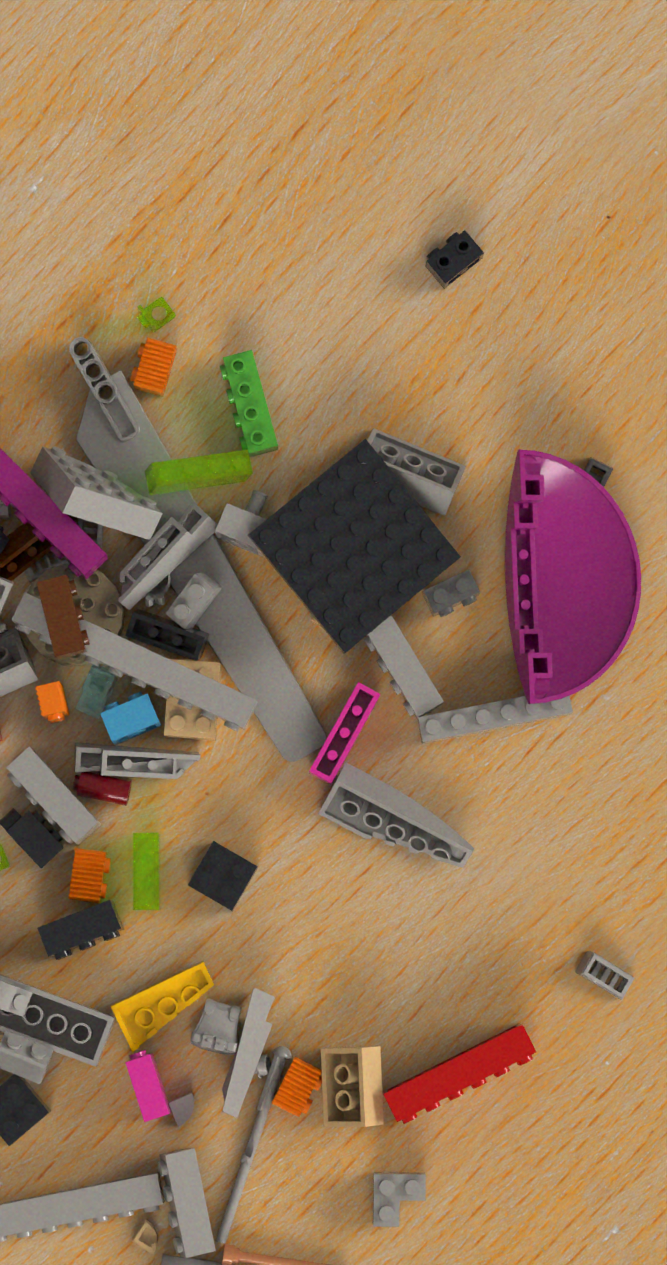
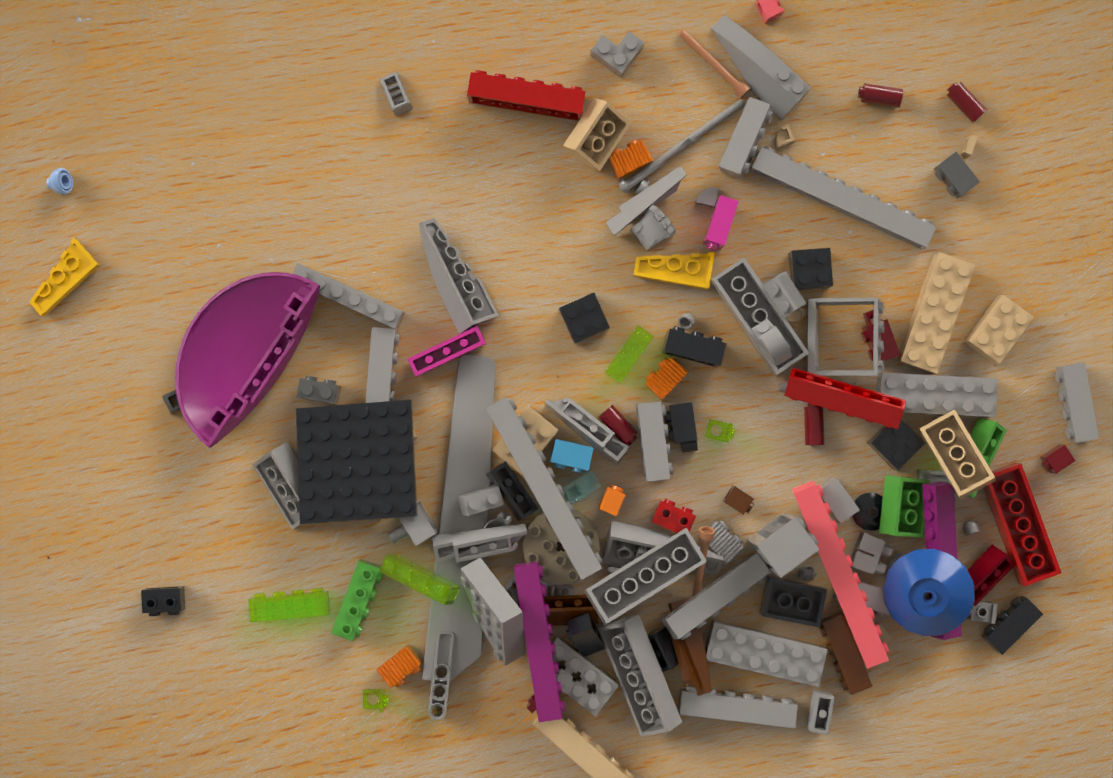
camera: 140 degrees left, 5 degrees up
(63, 616) = (568, 546): reddish brown brick -> none
(109, 954) = (686, 321): none -> light grey hinge
(317, 347) = (289, 606): none -> clear neon green brick

